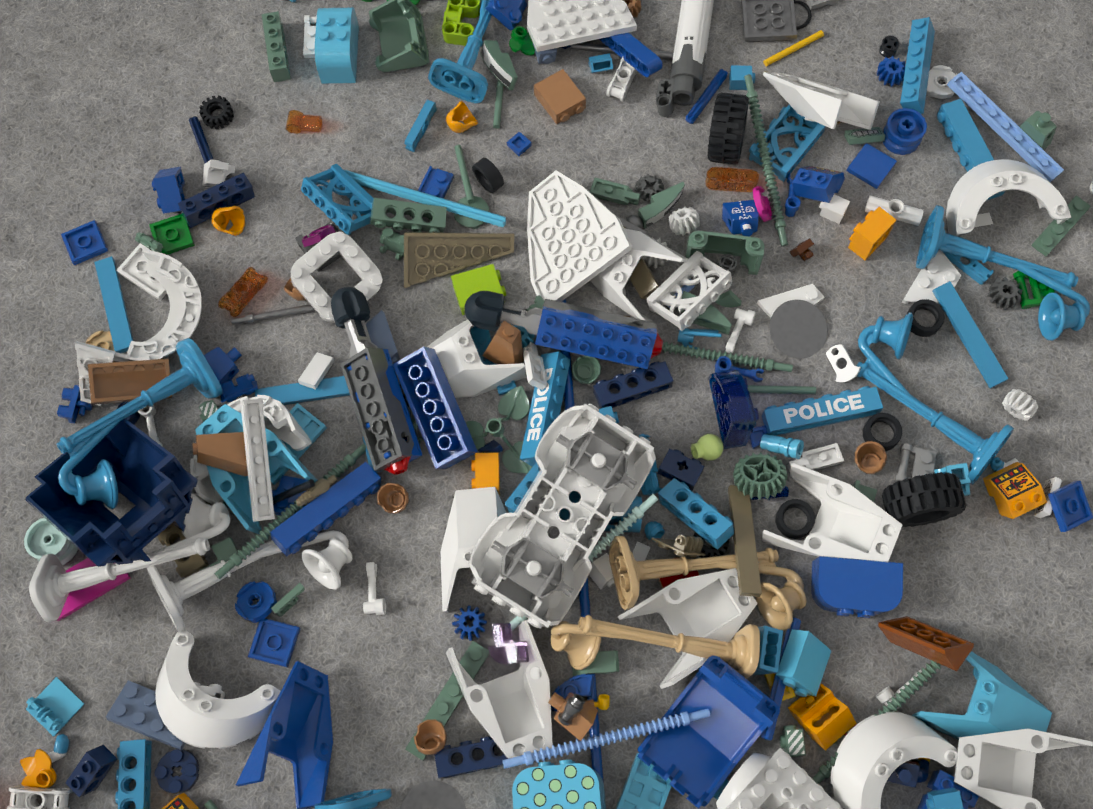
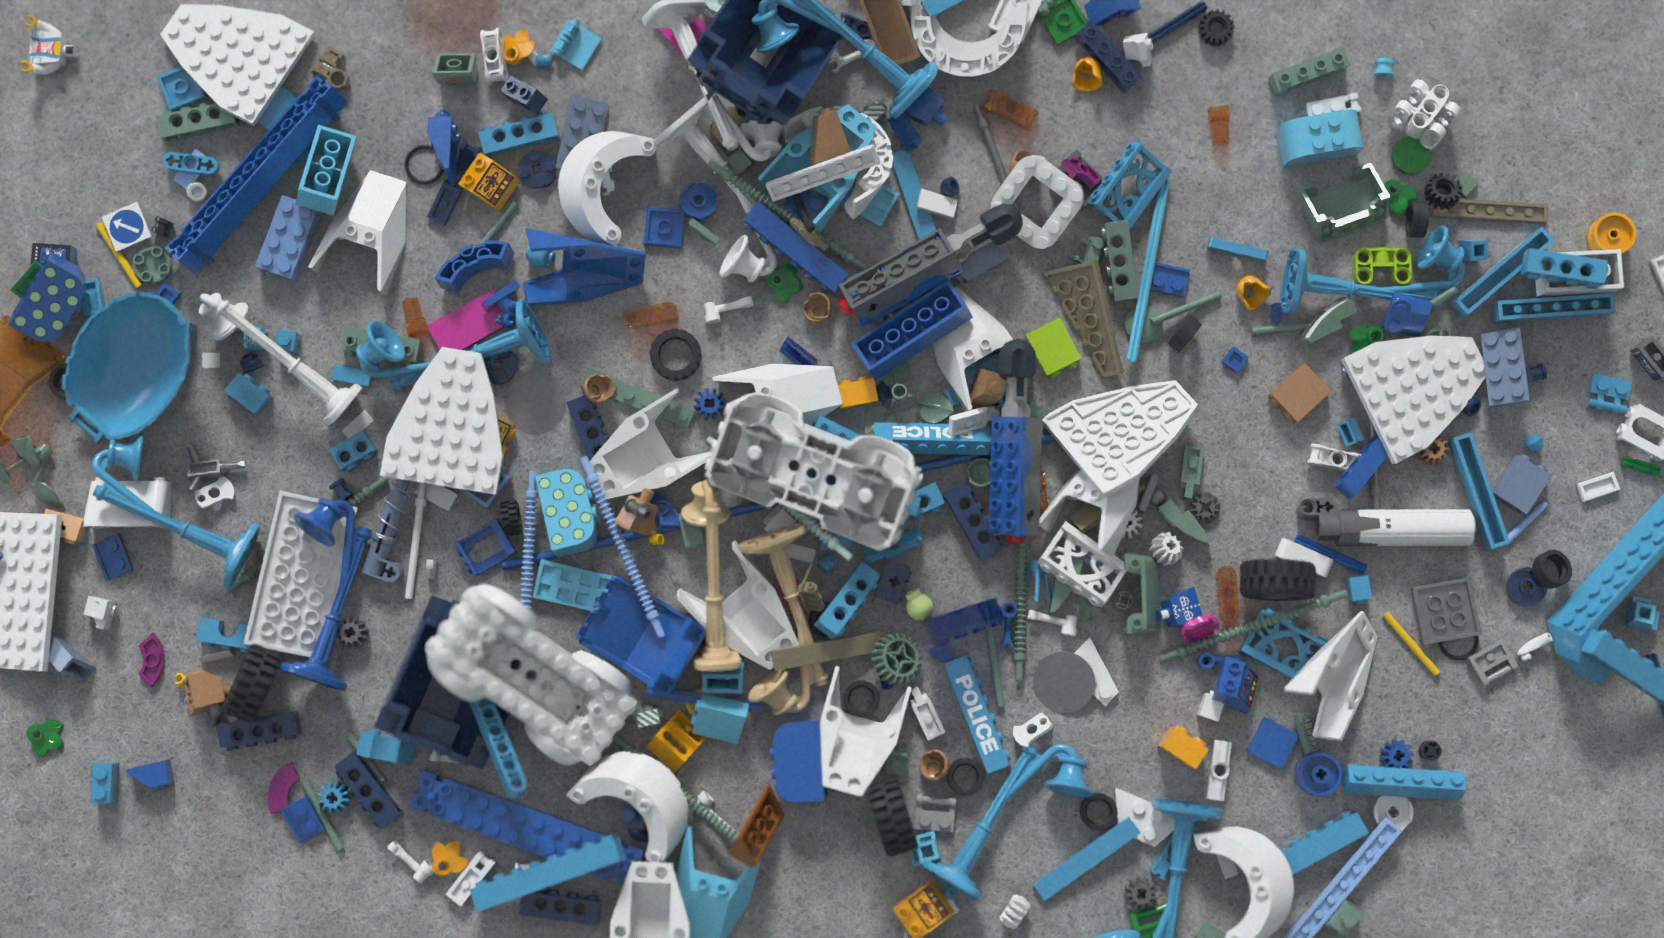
camera: 80 degrees right, 15 degrees up
(273, 782) = (540, 258): none -> dark azure head
(301, 356) = (949, 187): none -> dark blue tile
(358, 662) = (641, 313): none -> clear orange beam
(360, 525) = (787, 283): none -> green plate
(393, 638) = (666, 336): none -> black tyre
(435, 526) = (796, 353): none -> clear blue slope
(484, 103) = (1276, 313): none -> clear blue tile
(505, 649) = (690, 440): clear purple brick -> none
(701, 122) = (1291, 550): none -> white beam
(789, 447) = (931, 683): medium azure axle -> none
(803, 250) = (1156, 677): reddish brown tile -> none

